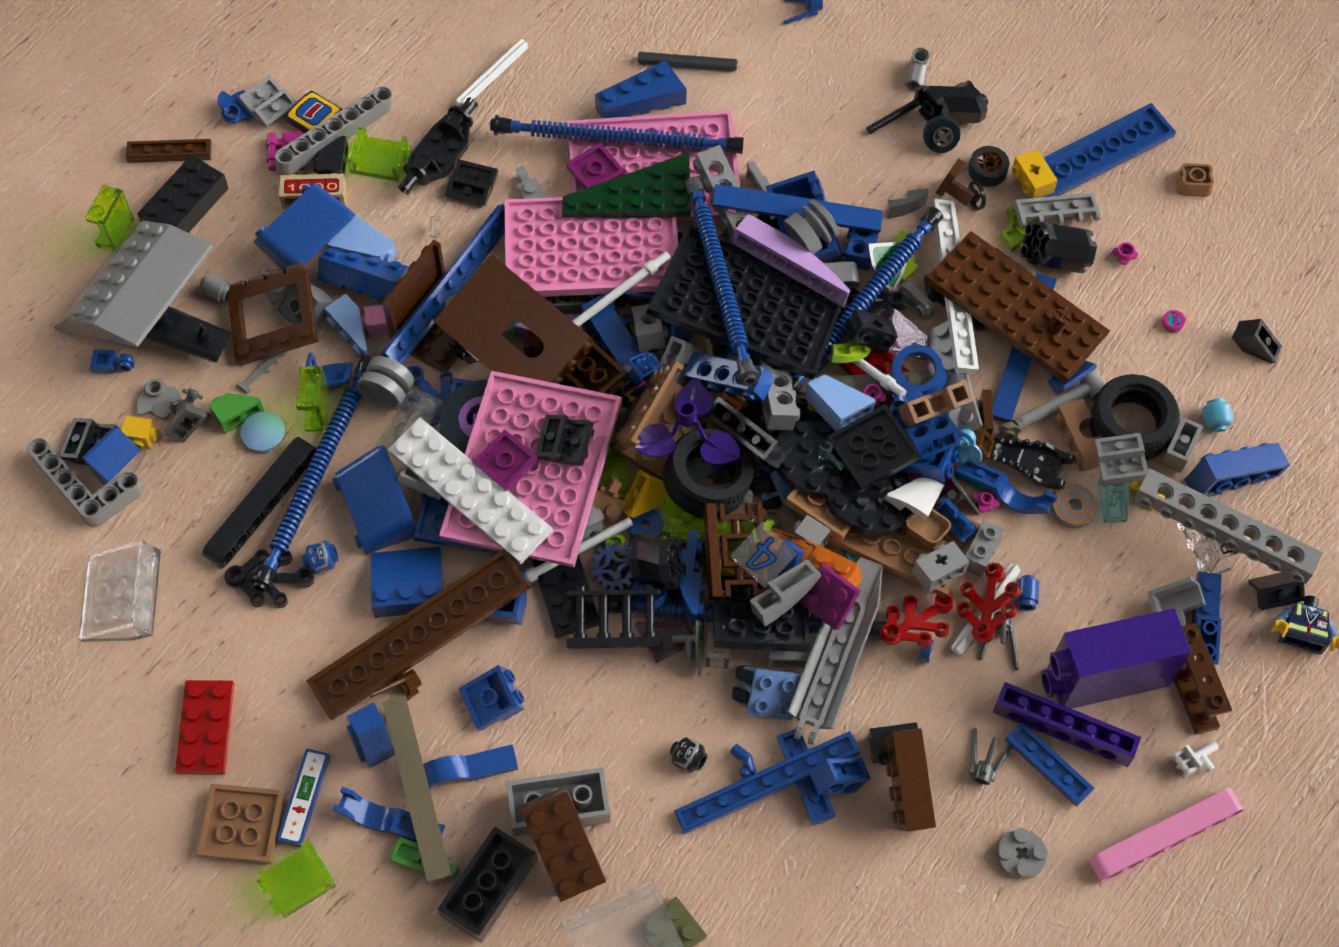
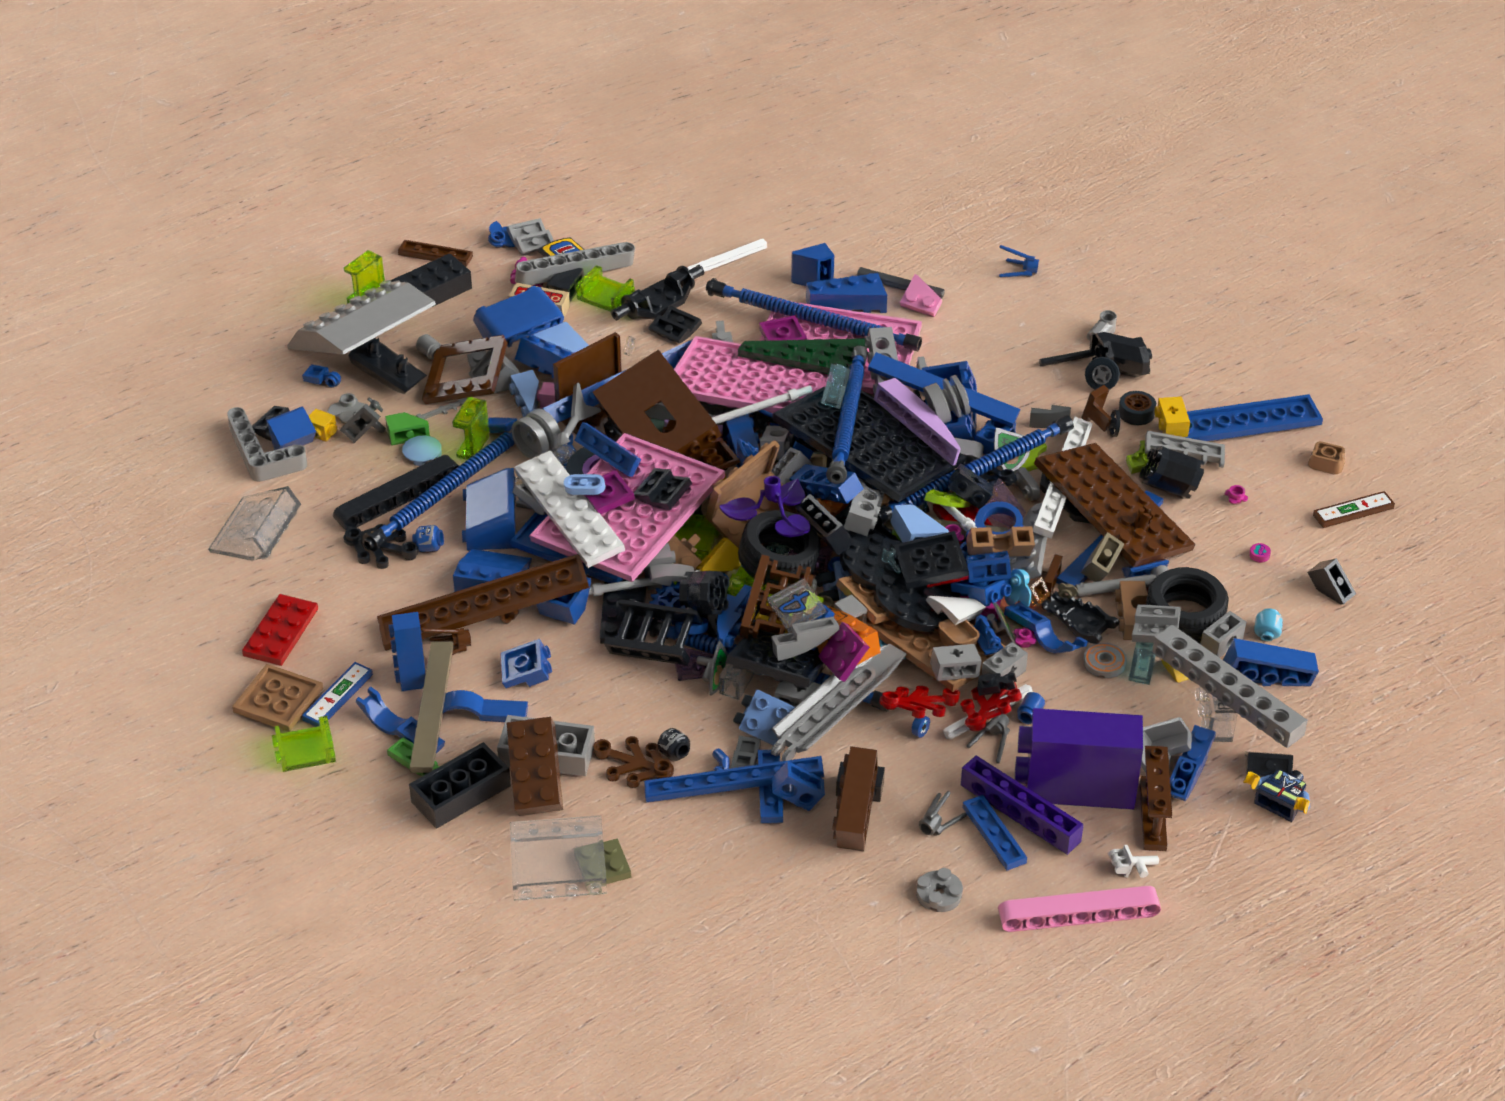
camera: 20 degrees right, 20 degrees down
(424, 344) = (579, 412): none -> light grey piece
(481, 460) = (584, 484): none -> light blue plate
(484, 402) = (607, 449): none -> blue plate
(593, 67) = (812, 264): none -> blue slope
(603, 537) = (666, 573): none -> light grey slope
(655, 787) = (659, 769): none -> reddish brown plant
(693, 246) = (835, 385): none -> clear light blue slope
(717, 77) = (920, 297): none -> bright pink wing
(764, 743) = (746, 752): none -> dark grey slope
(983, 579) = (994, 683): none -> black plate
(1033, 383) = (1102, 558): none -> dark tan slope
(1242, 238) = (1353, 509): none -> tile

